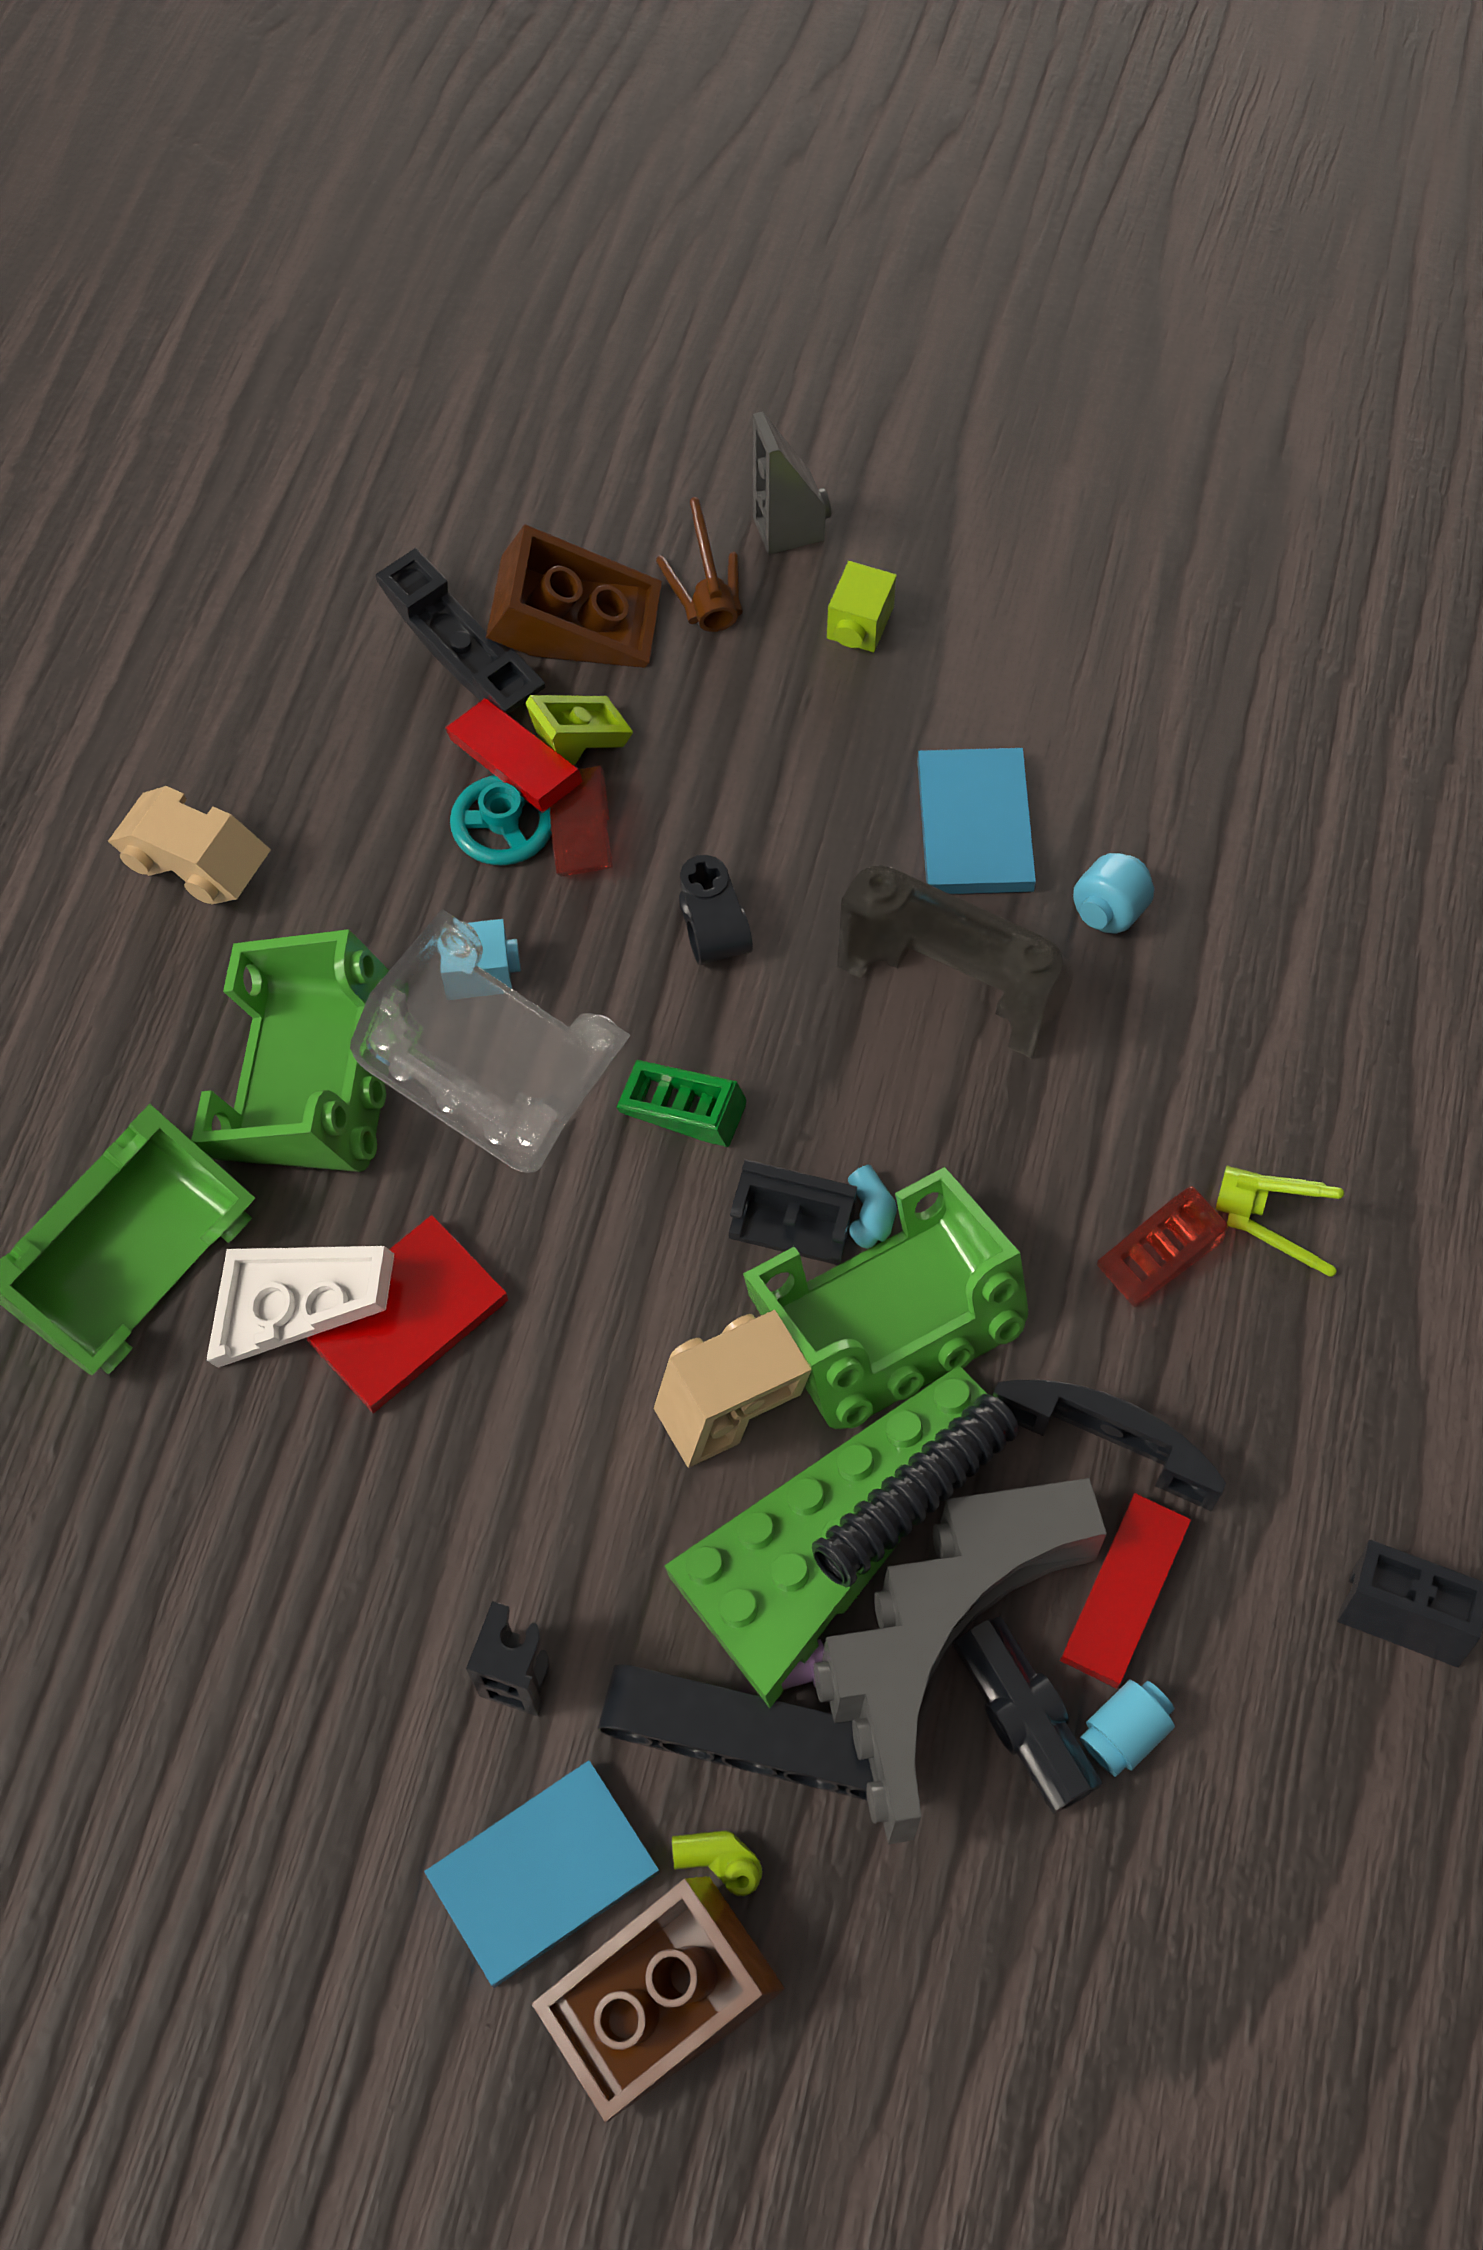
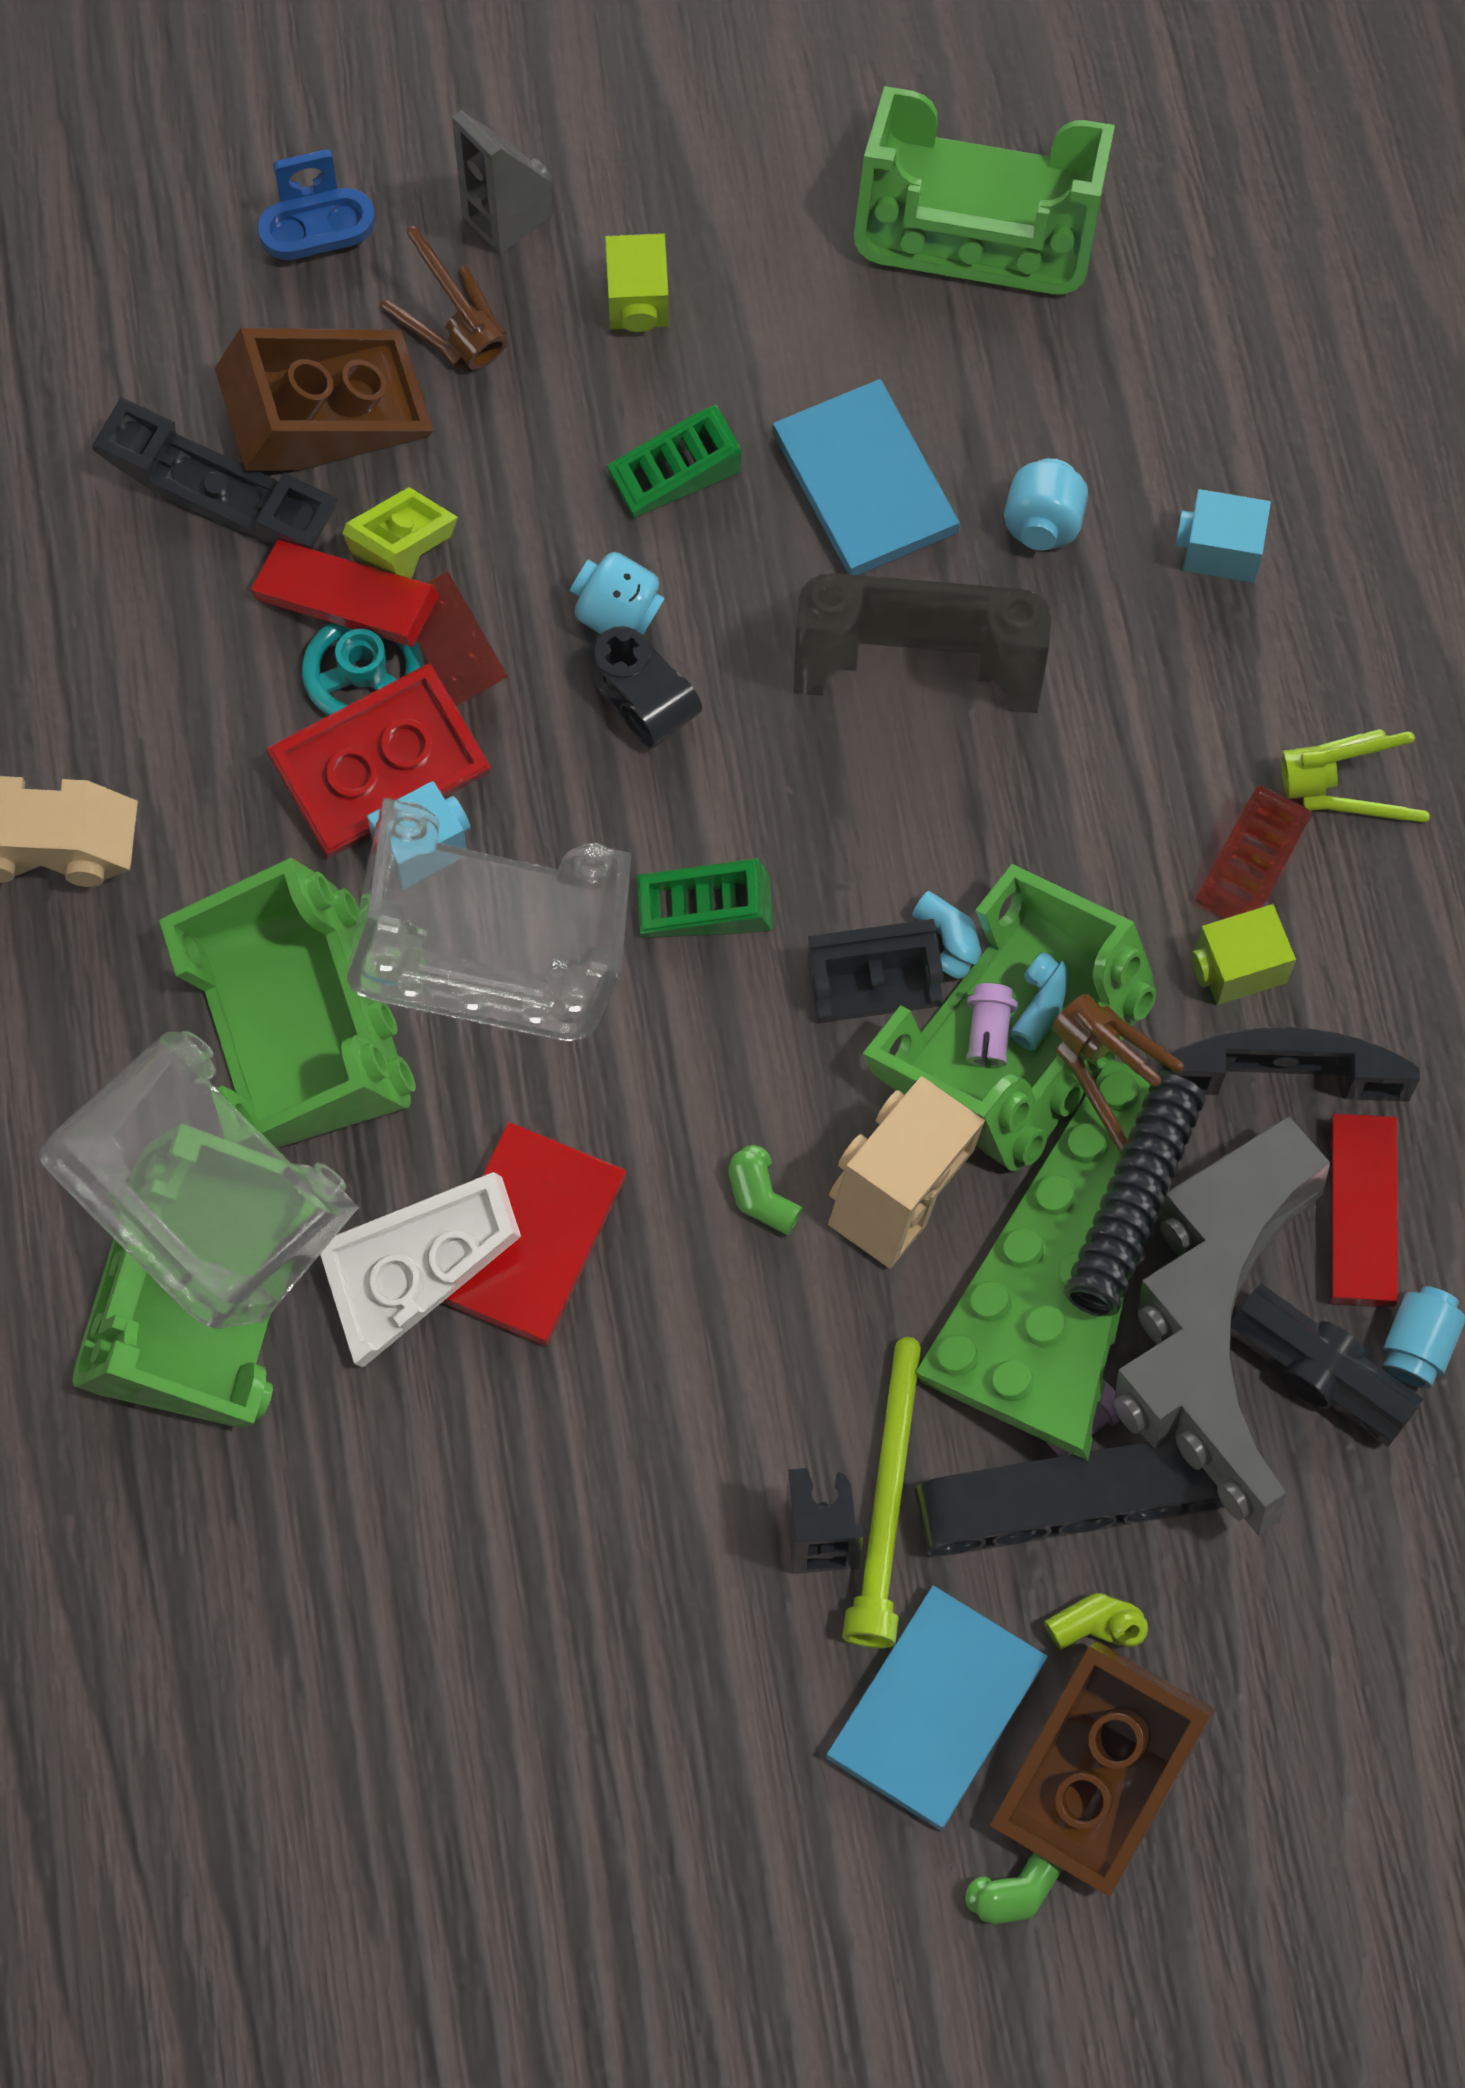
camera: 25 degrees left, 5 degrees up
(138, 1165) = (196, 1186): none -> clear windscreen
(479, 881) = (376, 752): none -> red tile
(522, 2080) = (1013, 1897): none -> bright green arm
(523, 1764) = (872, 1618): none -> lime piece
(603, 1356) = (754, 1191): none -> bright green arm
(632, 474) = (313, 216): none -> blue bracket
(726, 832) = (616, 594): none -> medium azure head
(844, 768) = (685, 435): none -> green slope
(868, 1295) = (990, 1023): none -> lavender pin
(924, 1299) = (1047, 1004): none -> medium azure arm
(944, 1335) = (1093, 1033): none -> reddish brown plant
(1114, 1324) = (1243, 955): none -> lime brick
(1162, 646) = (979, 206): none -> bright green windscreen
(1254, 972) = (1224, 535): none -> medium azure brick

